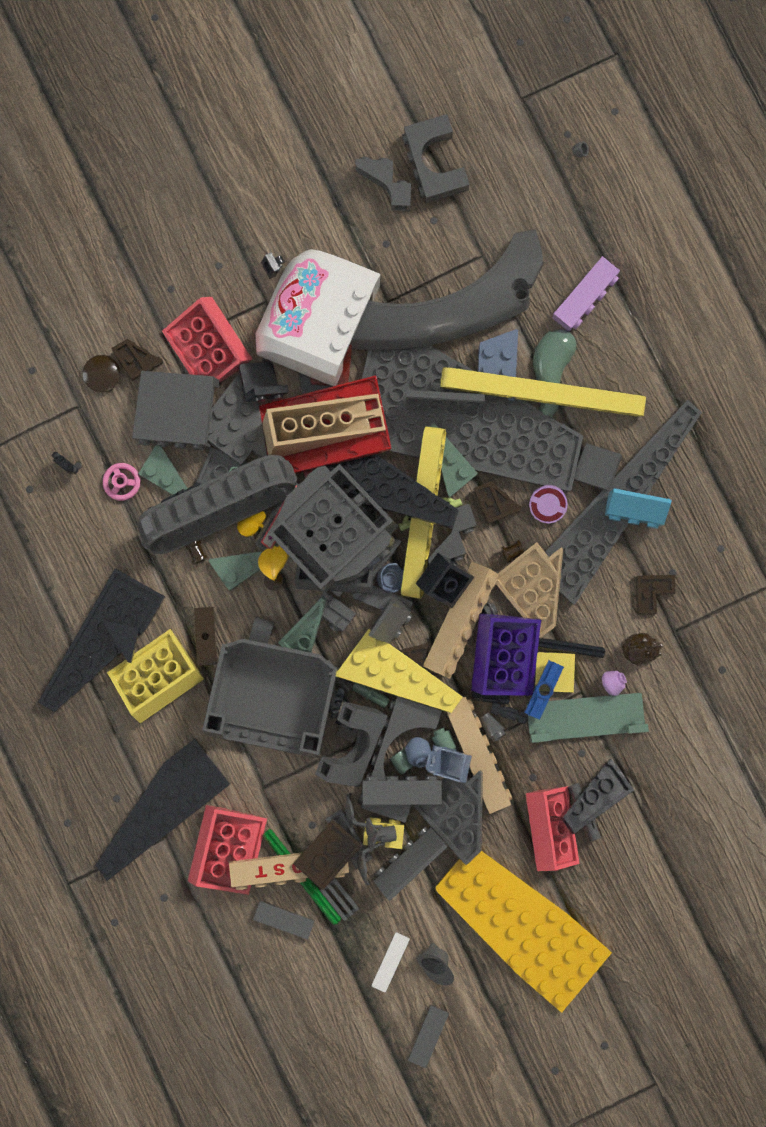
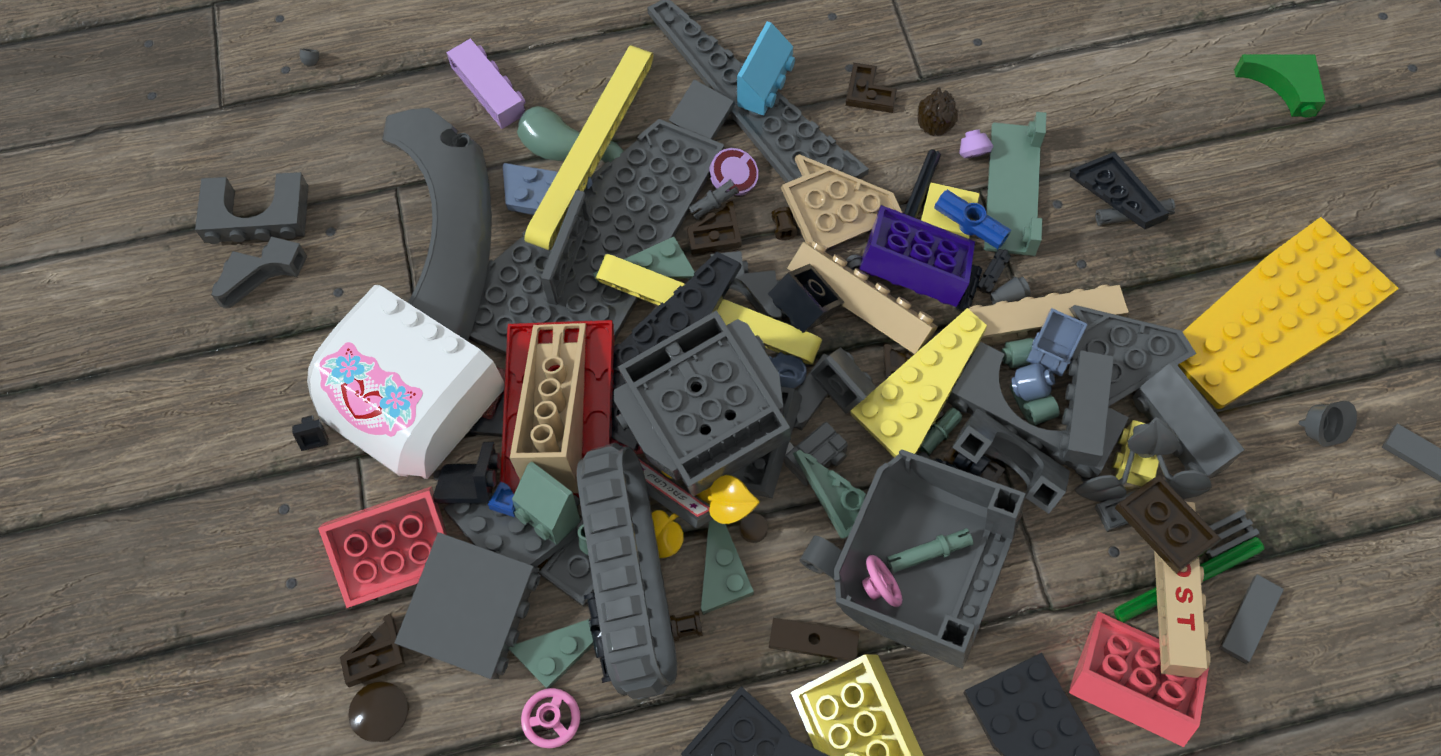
camera: 80 degrees left, 20 degrees down
(247, 438) = (545, 504): none -> sand green slope
(247, 670) = (881, 582): none -> bright pink piece
(250, 411) = (502, 500): none -> blue tile
(280, 700) = (940, 547): none -> sand green pin
(390, 962) = (1320, 487): white sticker -> none
(519, 495) = (714, 199): none -> dark grey pin
(551, 839) = (1155, 251): coral slope -> none
(739, 924) = (1289, 75): none -> green arch

